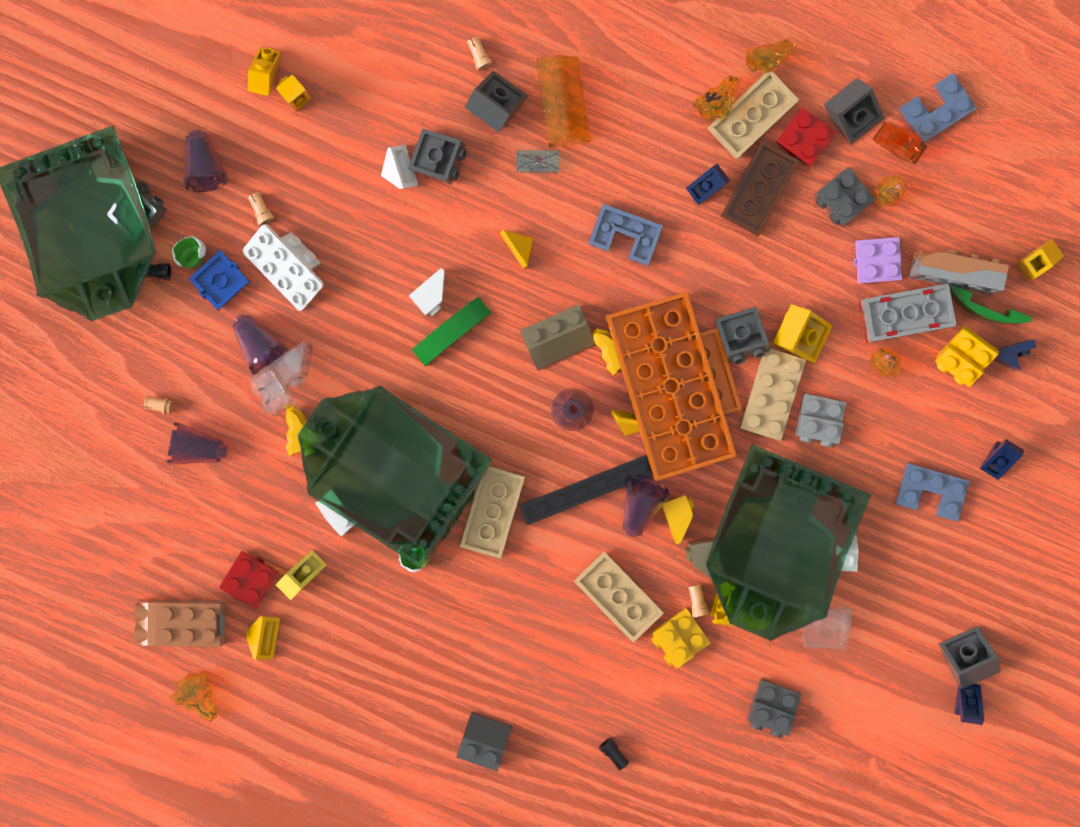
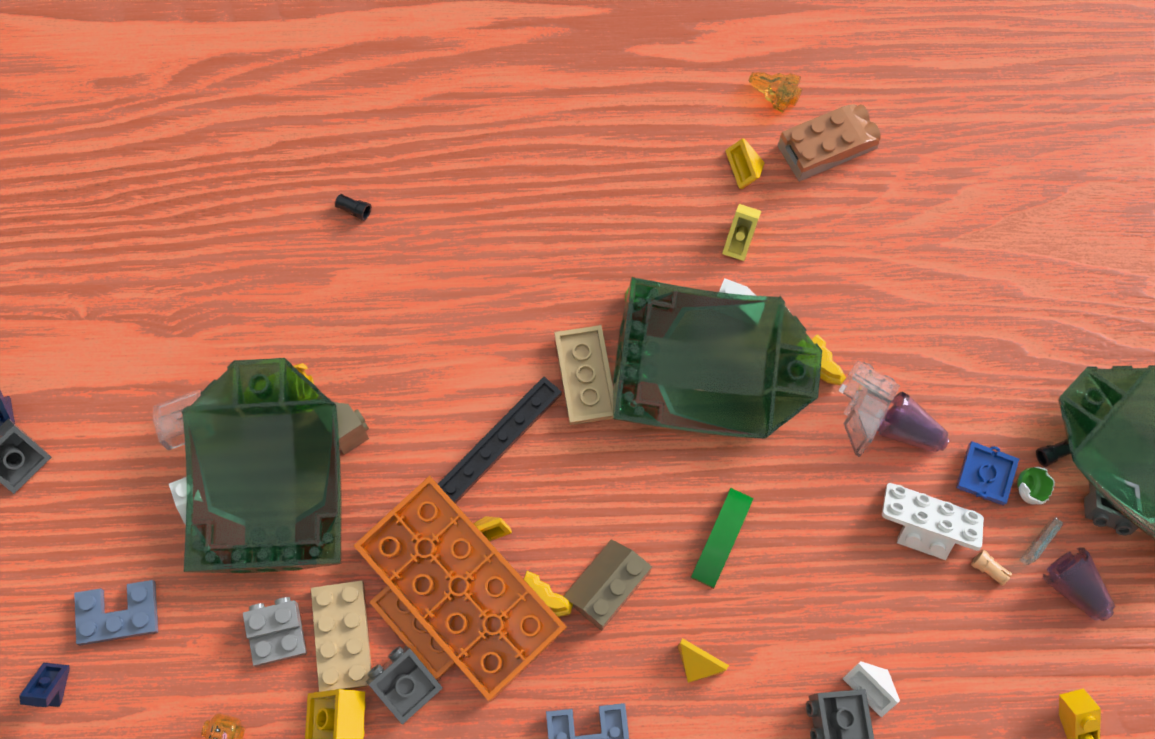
camera: 150 degrees right, 20 degrees down
(156, 404) = (964, 326): light nougat pin -> none
(194, 446) = (915, 298): clear purple cone -> none
(210, 209) = (1041, 541): none -> clear light blue tile
(248, 579) = (788, 207): red plate -> none
(293, 92) = (1035, 711): yellow slope -> none
(430, 294) = (765, 563): white slope -> none
(484, 741) = (486, 162): dark grey slope -> none
(564, 417) = (553, 516): cone -> none
(618, 596) = (416, 351): tan plate -> none
(642, 503) = (433, 450): cone -> none
(678, 515) = (390, 457): yellow slope -> none
(679, 638) = (334, 339): yellow plate -> none
(698, 606) = (328, 379): light nougat pin -> none
(773, 708) = (207, 316): dark grey plate -> none

